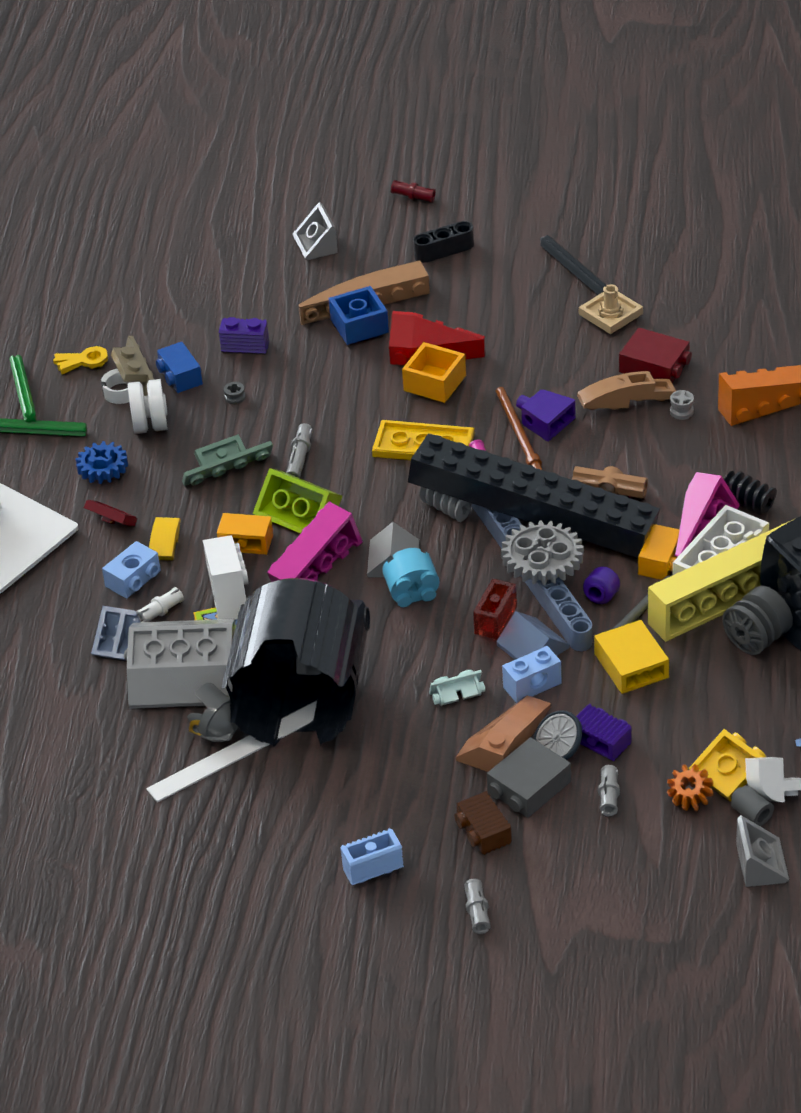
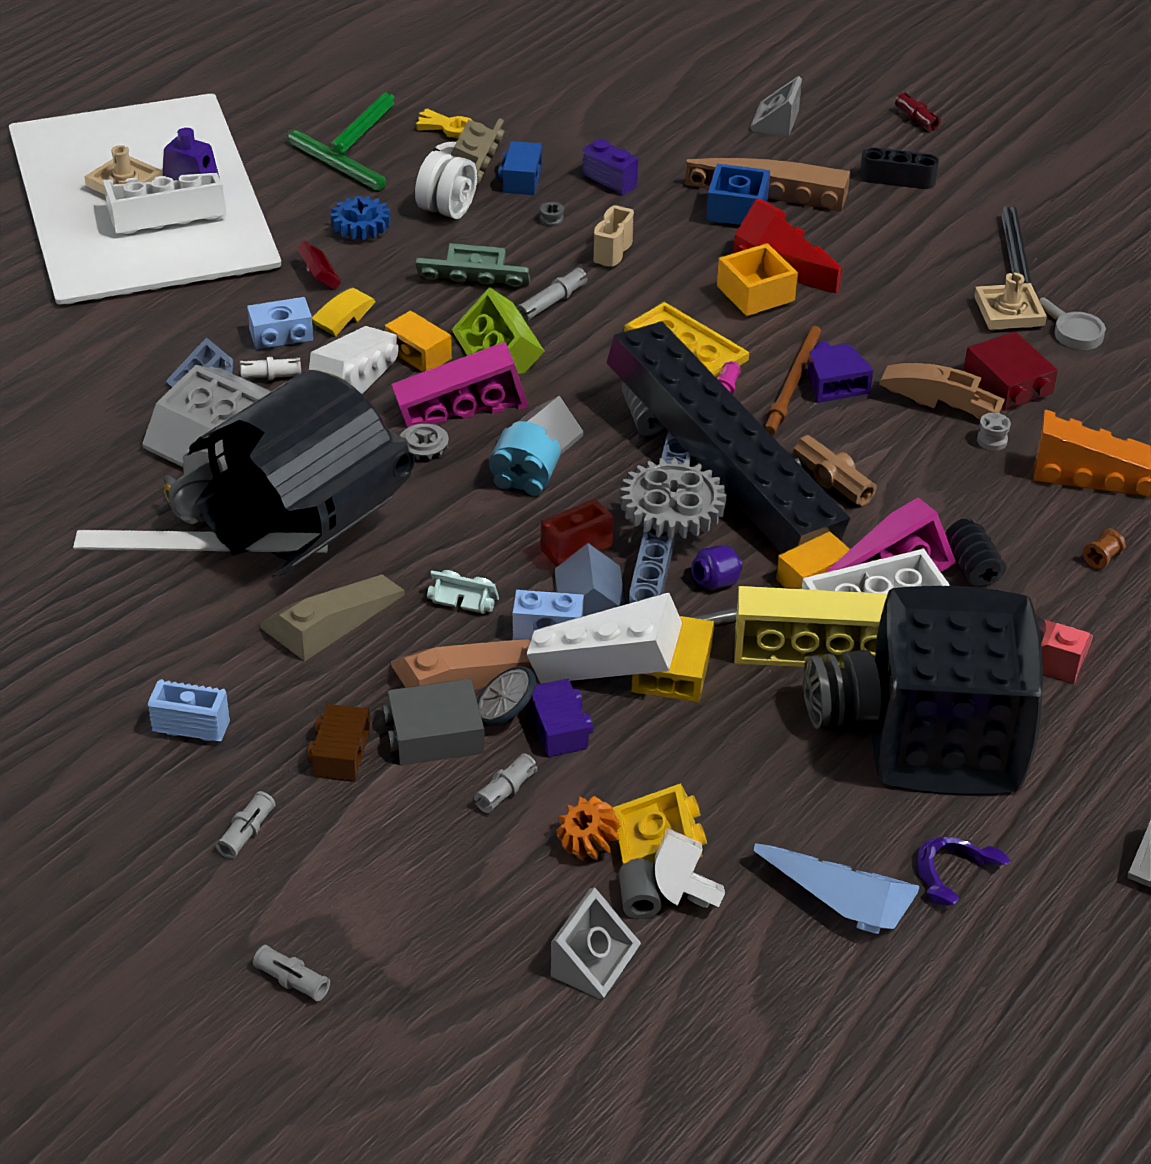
camera: 30 degrees right, 0 degrees up
(303, 387) = (613, 236): none -> tan brick
(383, 751) = (326, 617): none -> dark tan wedge
(596, 667) = (608, 643): none -> white wedge
(600, 972) = (272, 963): none -> light grey pin
(663, 306) = (1075, 329): none -> light grey piece

